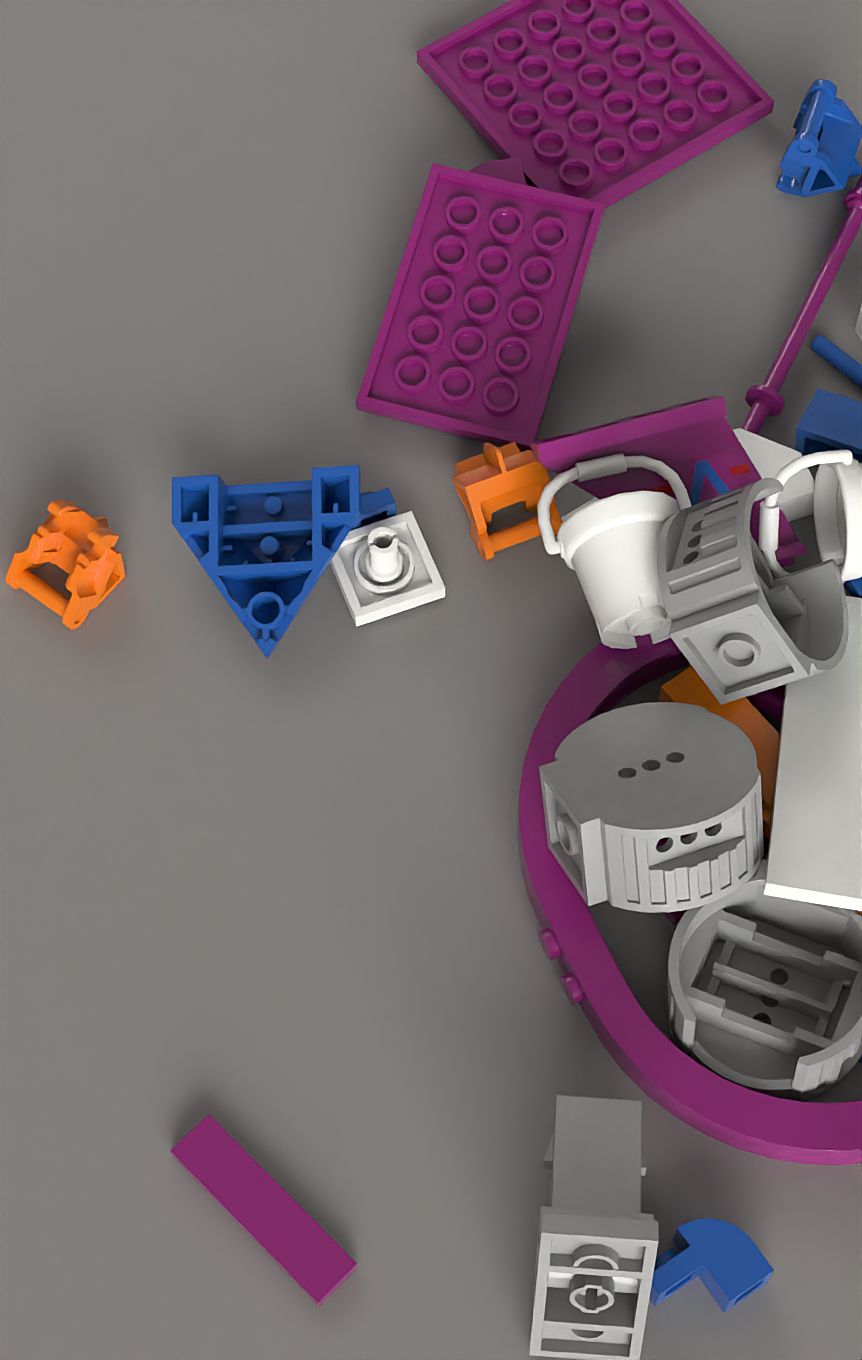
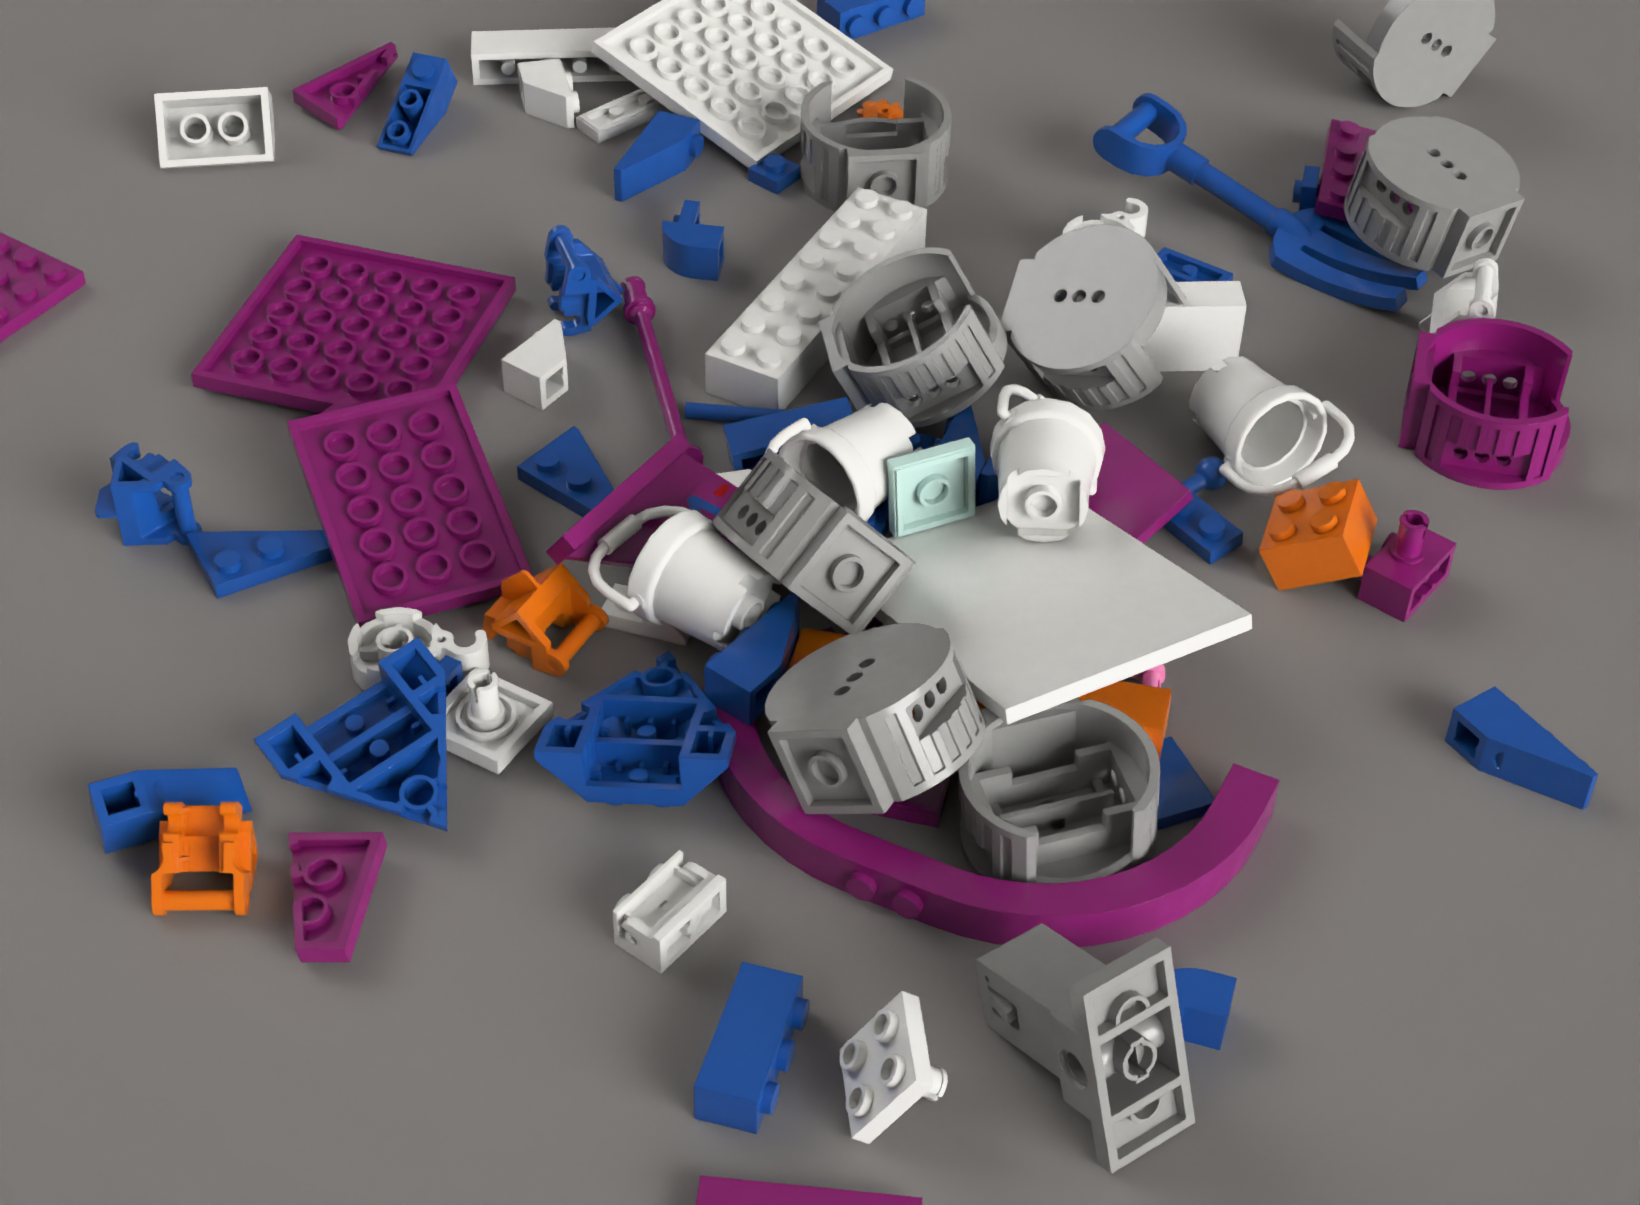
camera: 40 degrees left, 20 degrees down
(44, 475) = (131, 804): none -> blue slope
(147, 652) = (332, 890): none -> magenta wing
(279, 171) = (140, 506): none -> blue piece
(330, 277) = (250, 558): none -> blue wing
(336, 1030) = (750, 1048): none -> blue brick
(377, 856) = (668, 912): none -> white hinge
(386, 458) = (398, 627): none -> white piece
(417, 1136) = (888, 1068): none -> white plate
(480, 675) = (640, 741): none -> blue wedge
(618, 672) = (754, 662): none -> blue slope
(656, 351) = (567, 473): none -> blue wing
(718, 216) = (537, 368): none -> white slope

